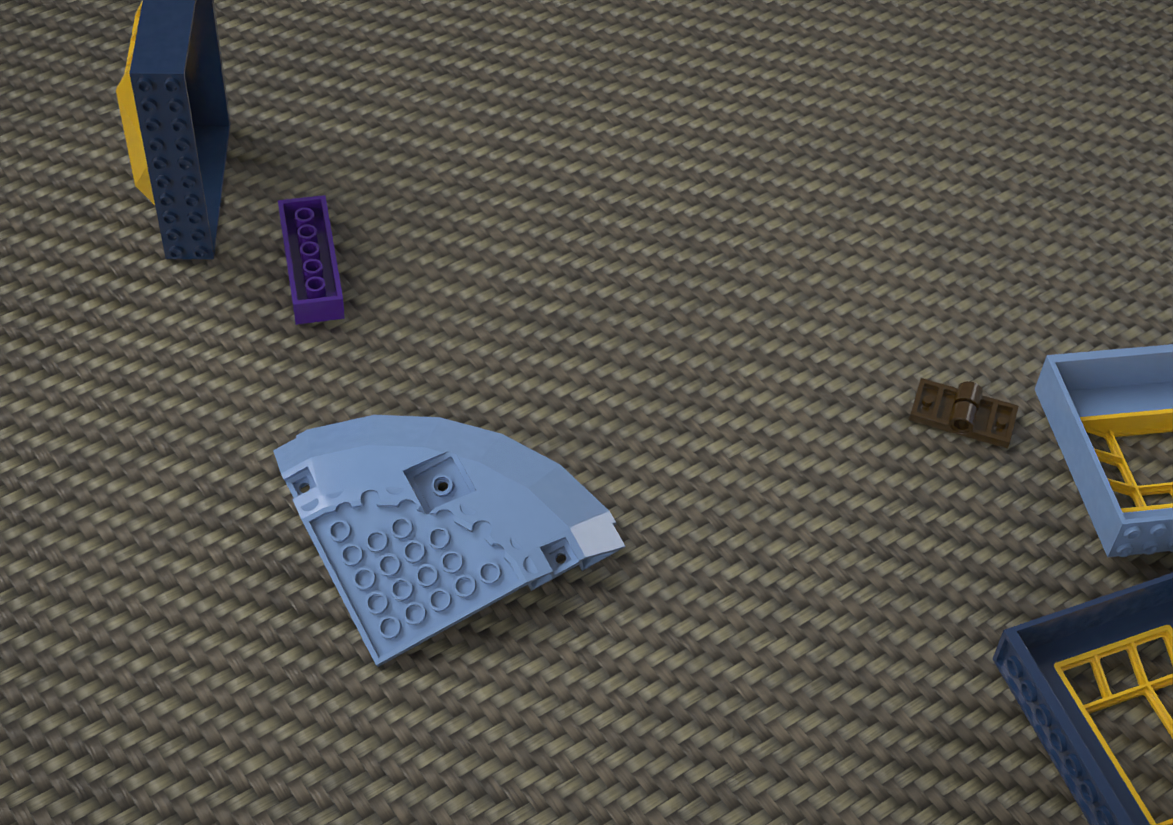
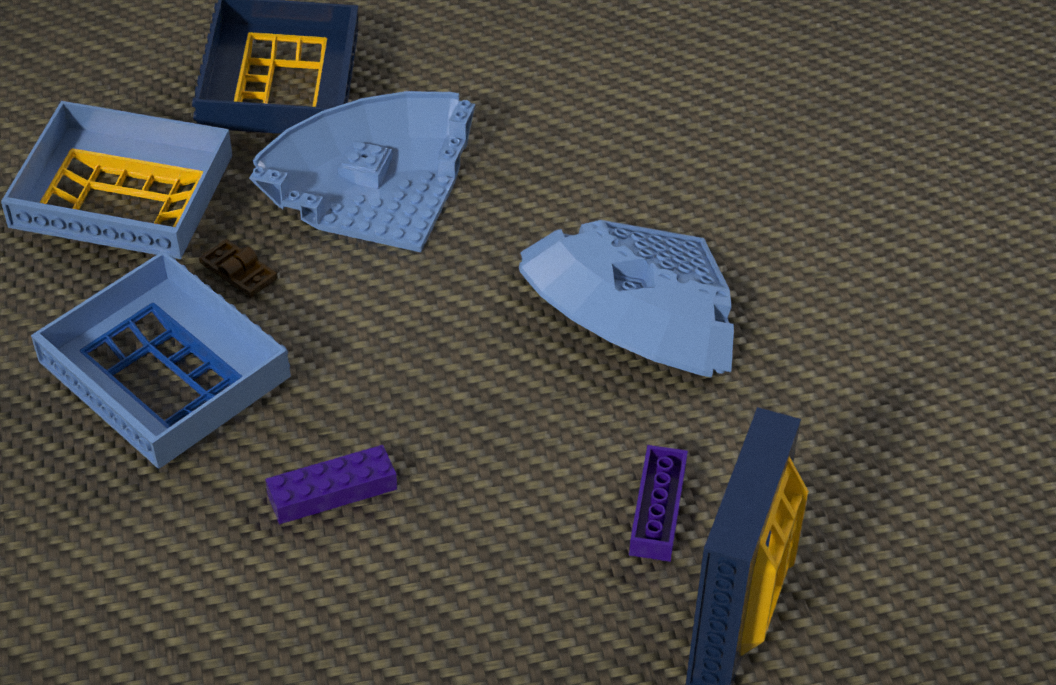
camera: 155 degrees left, 5 degrees down
(668, 191) = (331, 484): none -> dark purple brick
(859, 582) = (391, 194): none -> medium blue panel
(948, 195) = (194, 317): none -> medium blue panel

